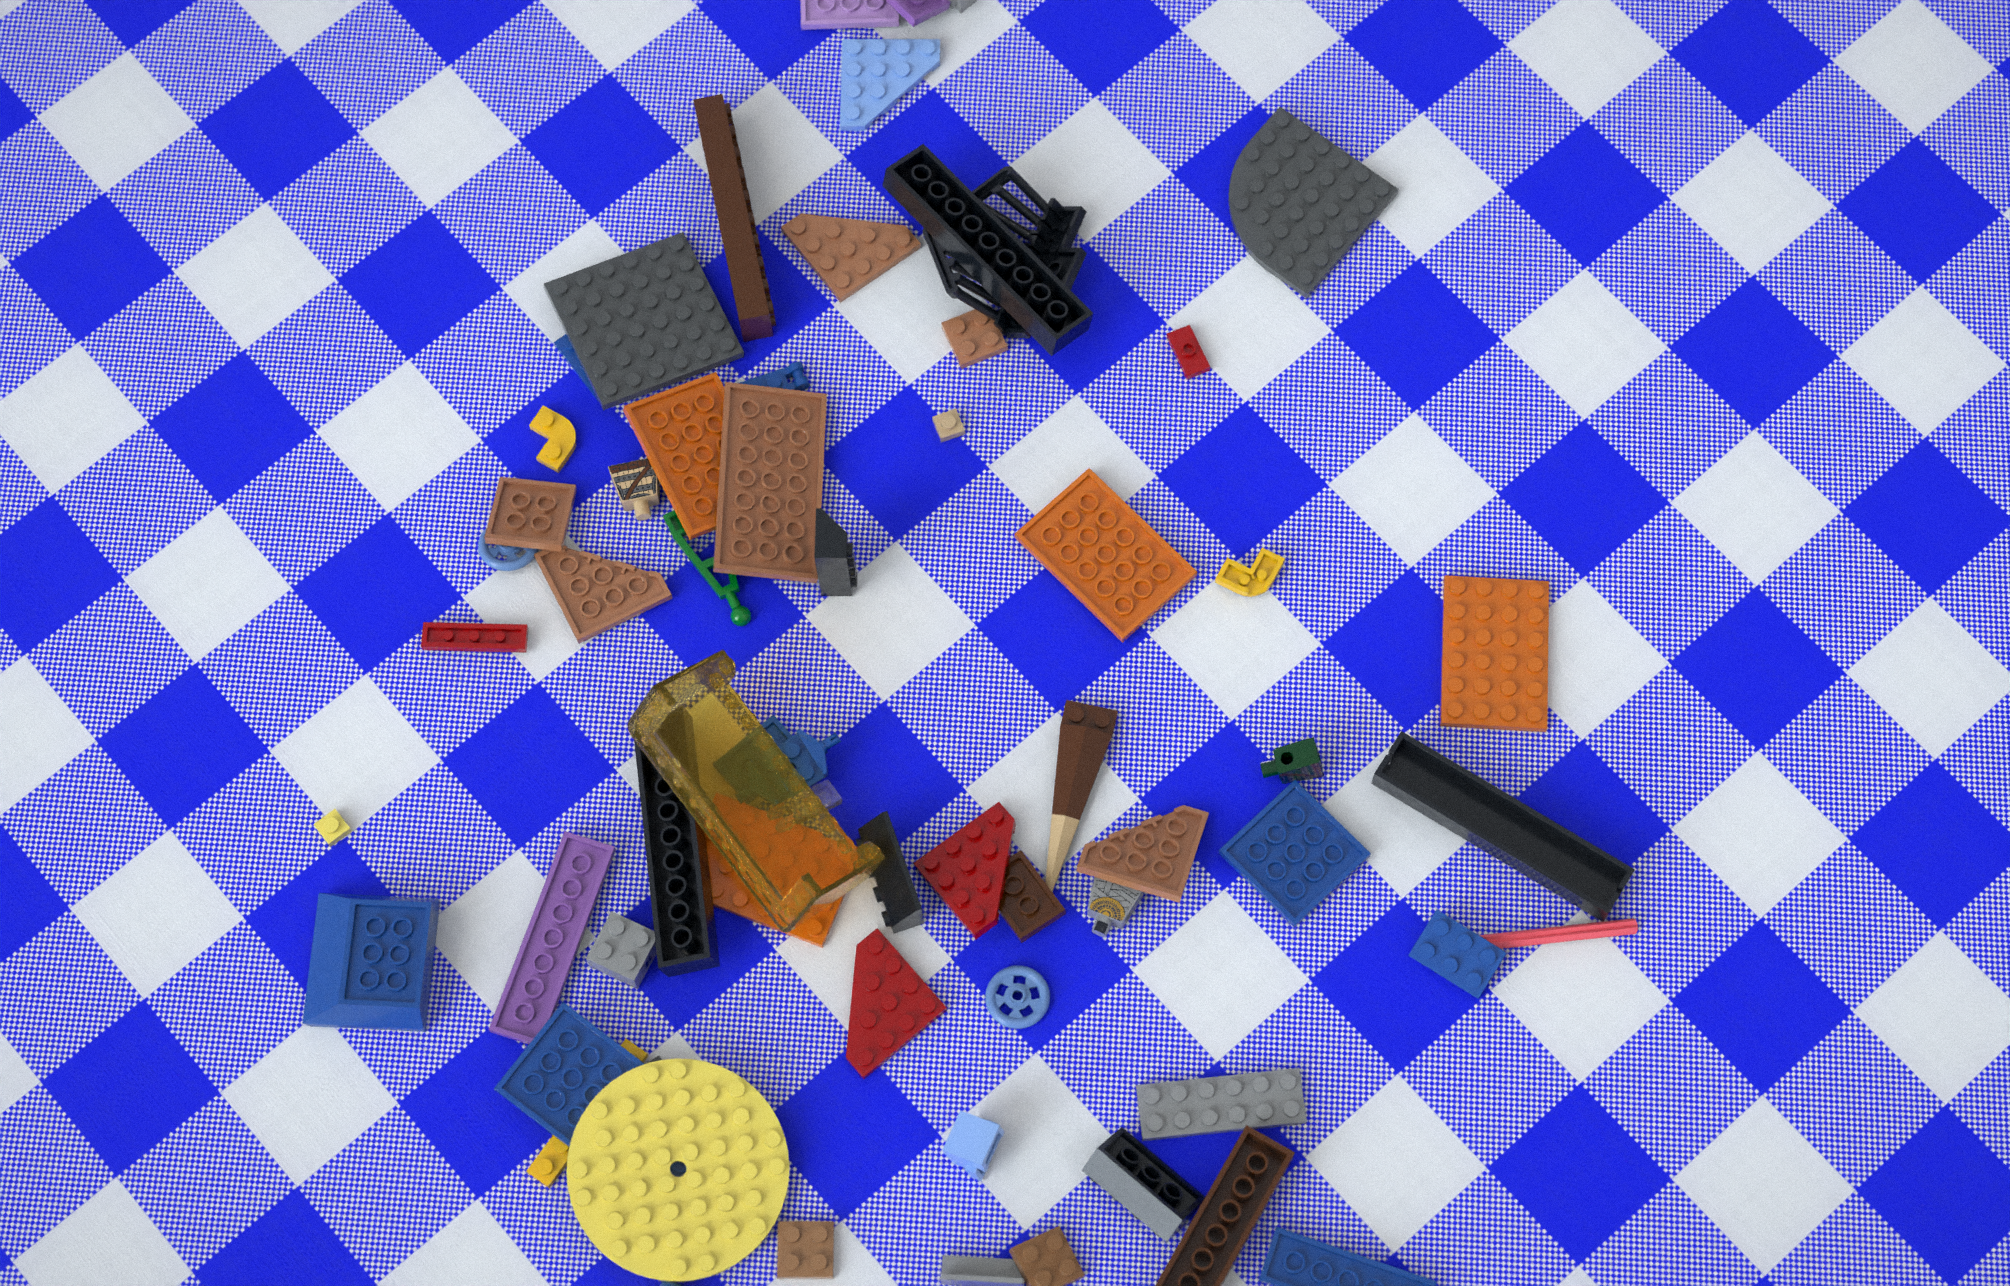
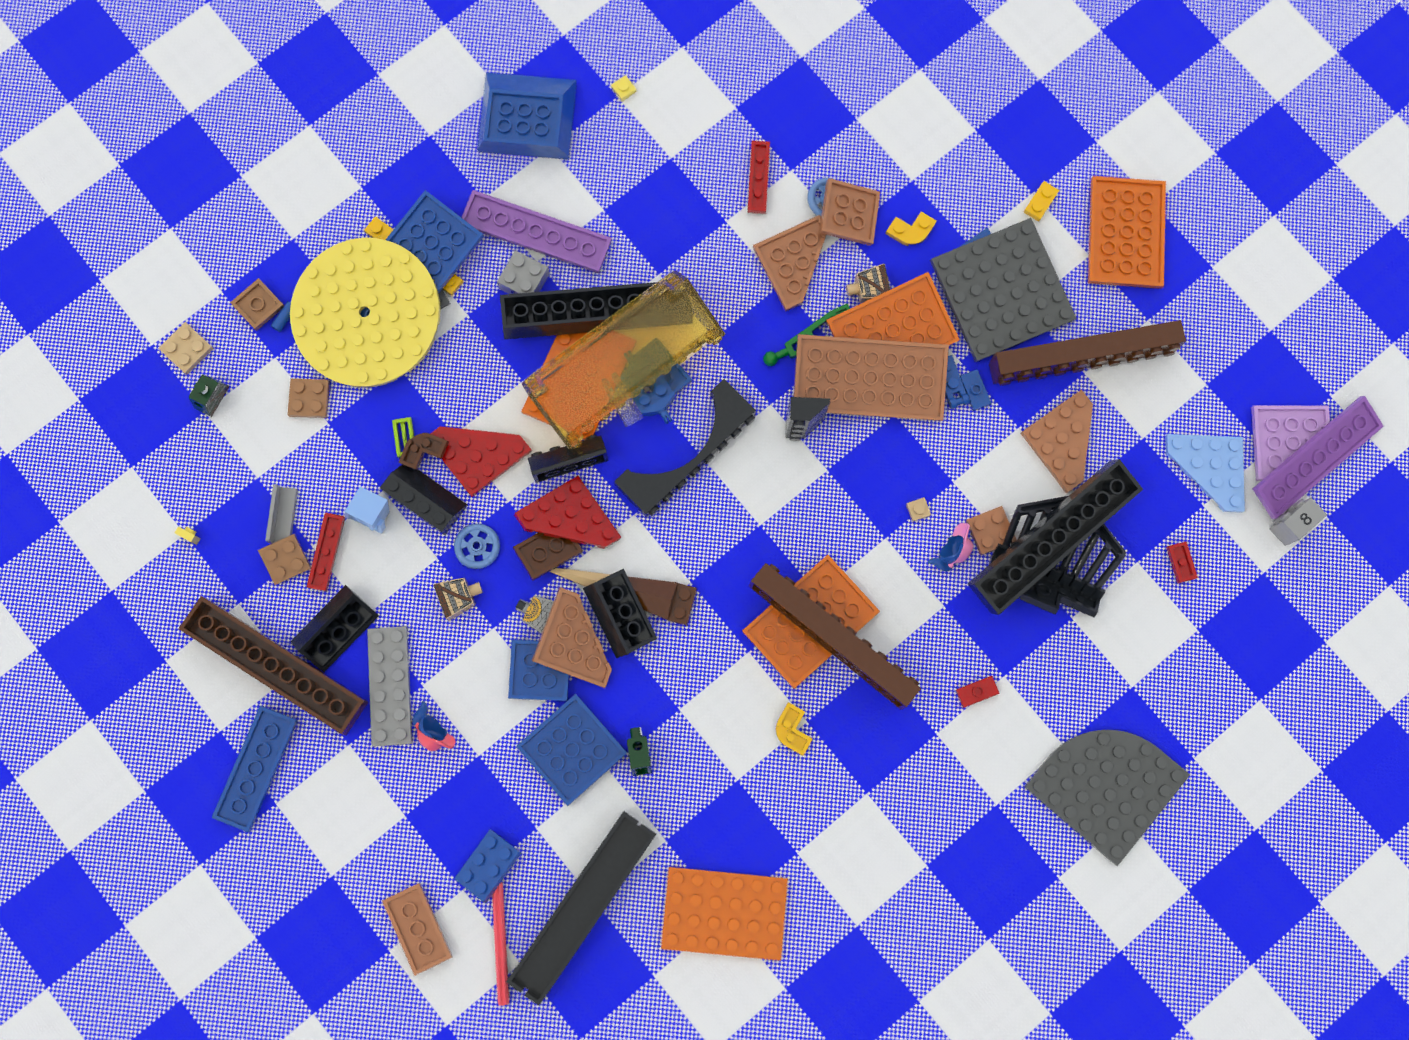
camera: 85 degrees right, 10 degrees up
(515, 276) = (1041, 201): none -> yellow plate
(561, 170) = (1127, 232): none -> orange plate
(782, 355) = (975, 390): none -> blue plate
(824, 664) = (650, 490): none -> black arch
(862, 1118) = (404, 435): none -> lime tile
(877, 1079) = (421, 444): none -> reddish brown plate
(951, 1072) = (424, 497): none -> black slope
(1000, 375) = (956, 550): none -> hair
(1009, 111) = (1182, 562): none -> red plate
(1034, 1205) = (325, 552): none -> red plate
(1092, 1017) = (456, 596): none -> torso
(1107, 794) = (620, 613): none -> black slope
(1127, 516) = (835, 637): none -> reddish brown brick
(1203, 909) = (533, 680): none -> blue plate
(1283, 1041) = (430, 732): none -> hair
(1548, 1043) = (417, 929): none -> nougat plate

